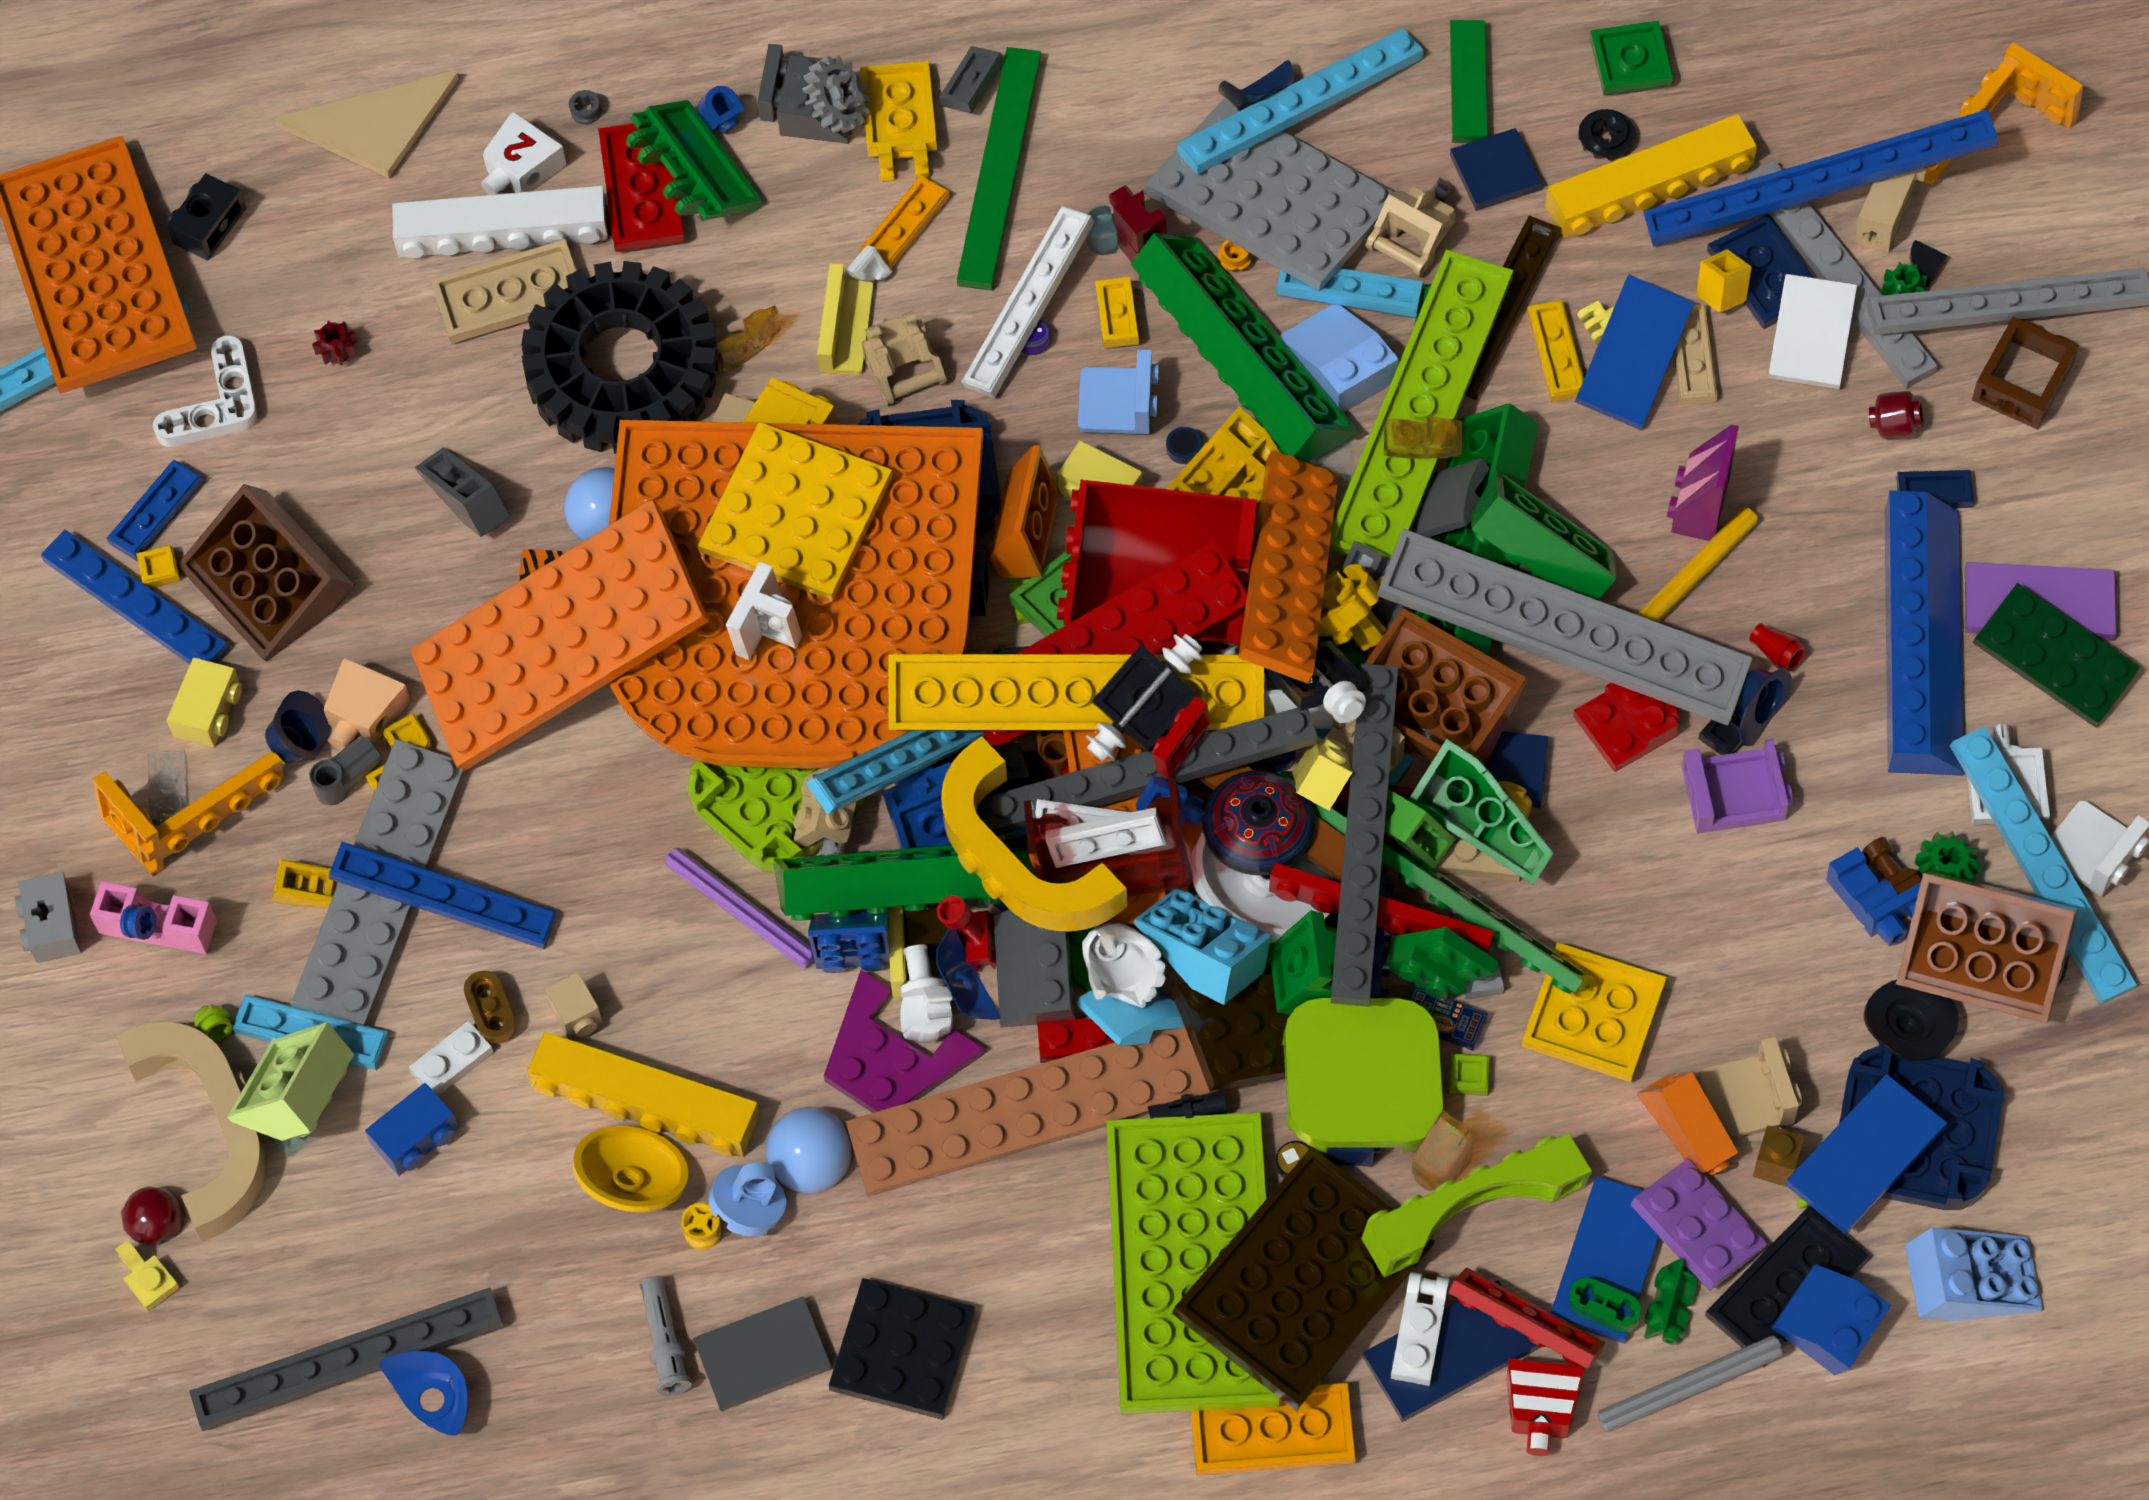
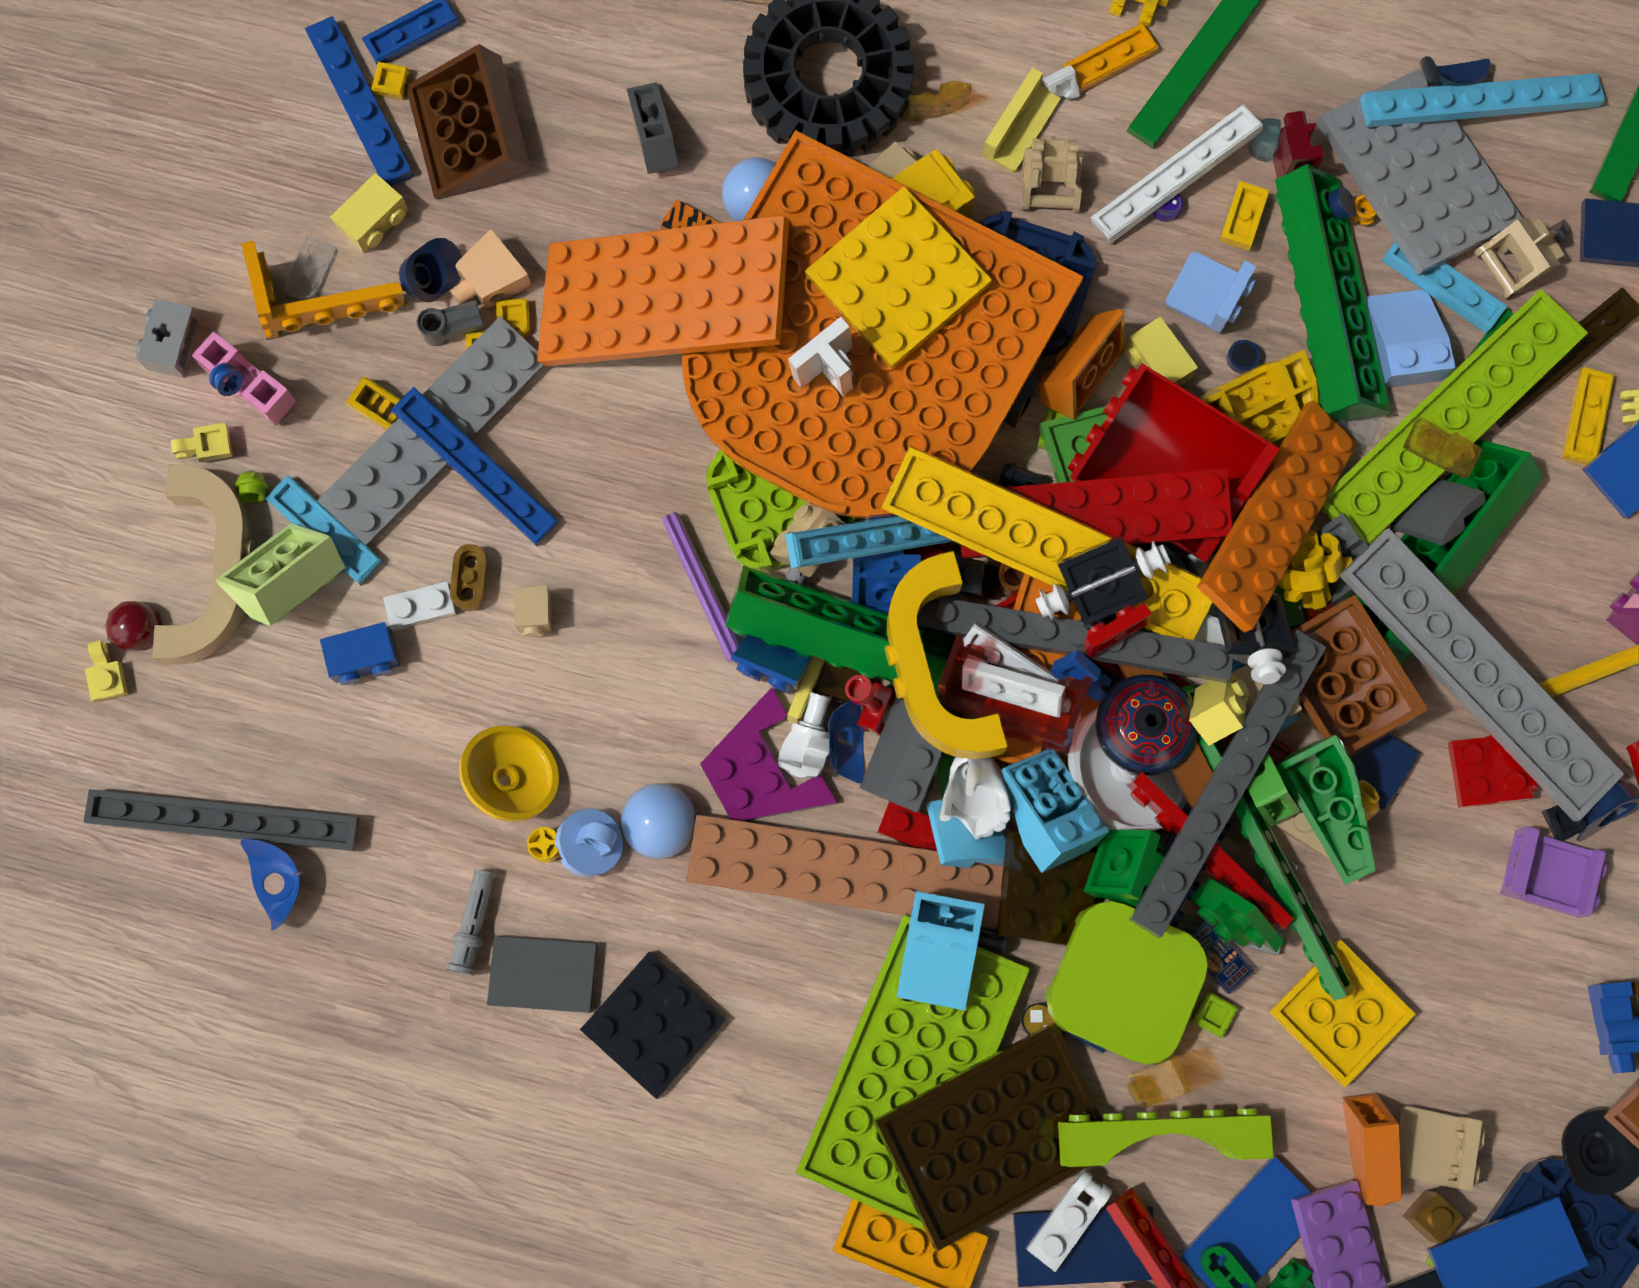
camera: 20 degrees right, 15 degrees up
(143, 1000) = (208, 443): none -> light yellow plate
(643, 1095) = (552, 711): yellow brick -> none
(1159, 1126) = (940, 950): none -> medium azure slope
(1209, 257) = (1342, 204): none -> dark blue tile
(1541, 539) = (1498, 586): green slope -> none

